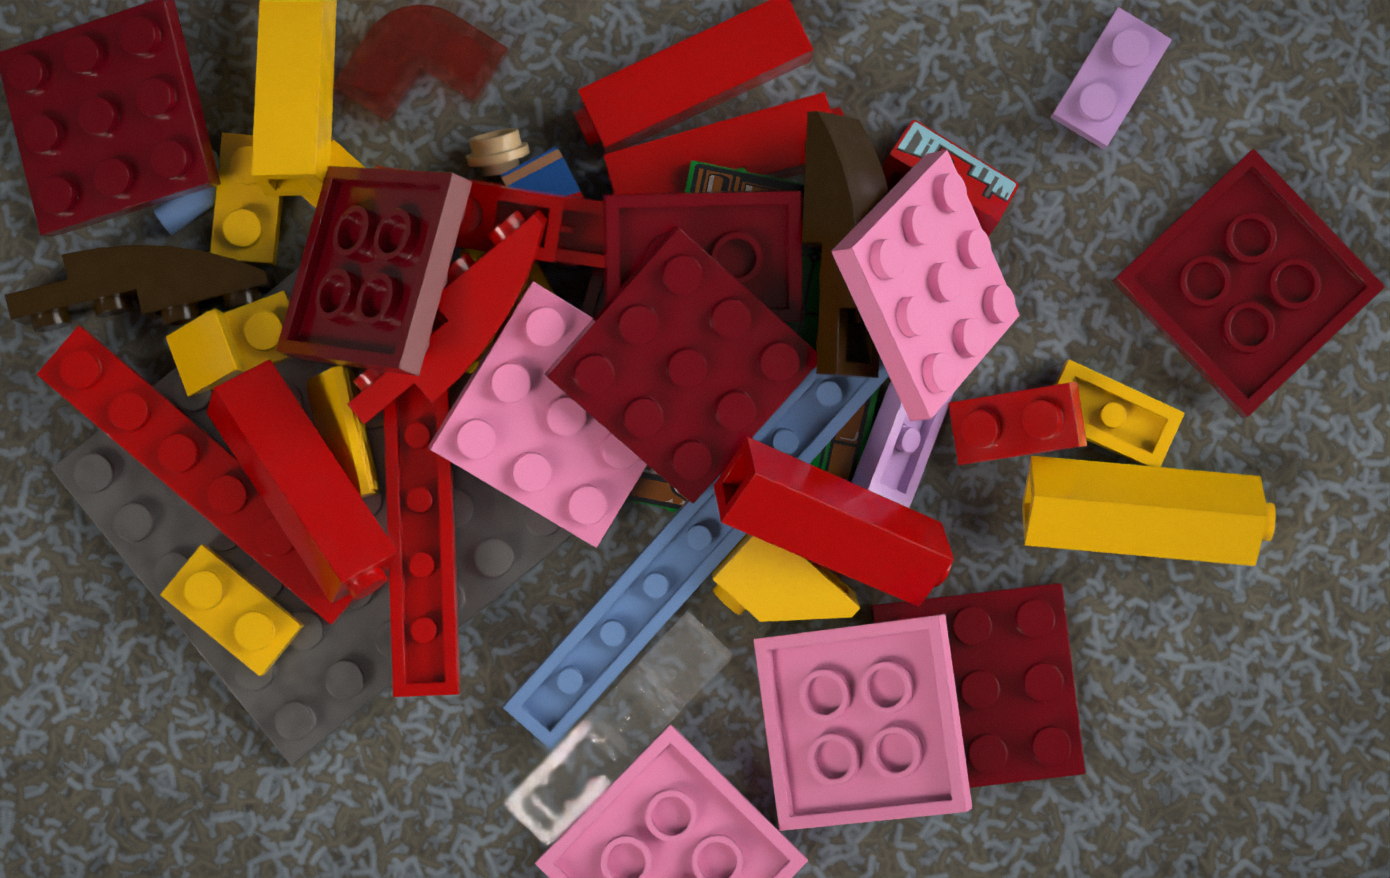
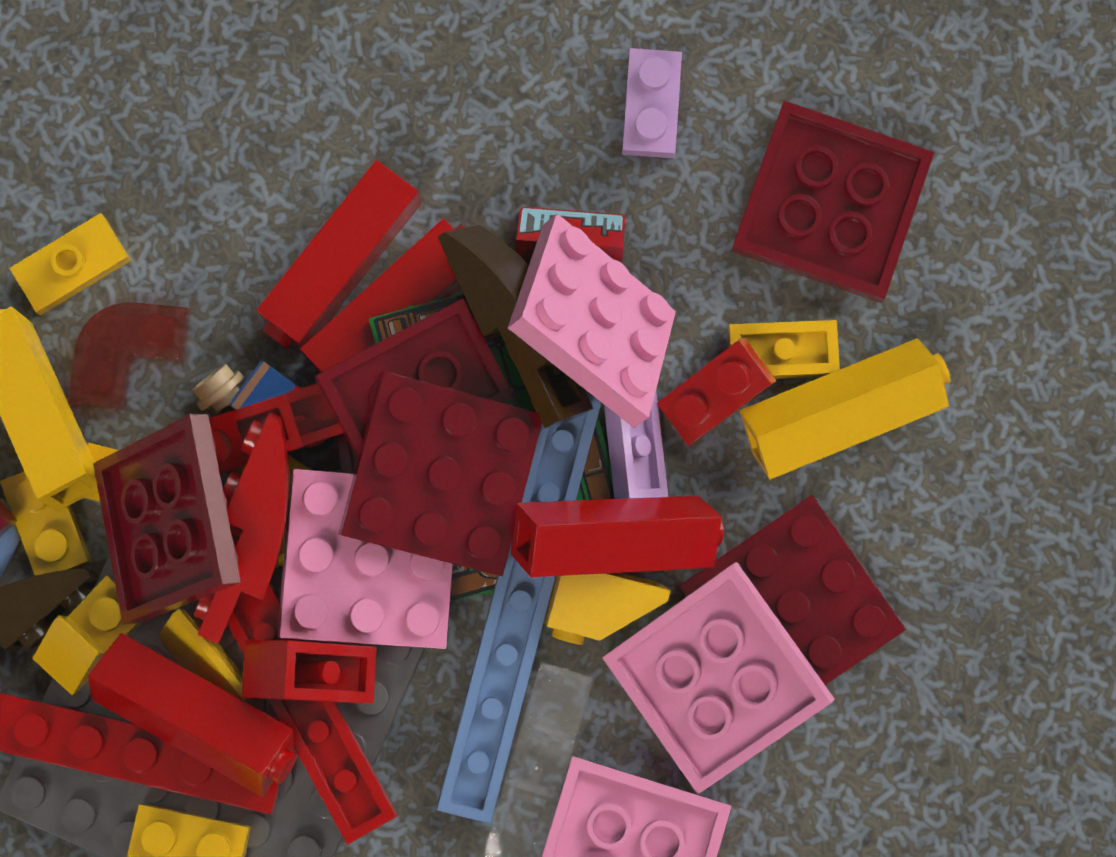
camera: 25 degrees left, 5 degrees down
(442, 501) = (308, 671): none -> red slope

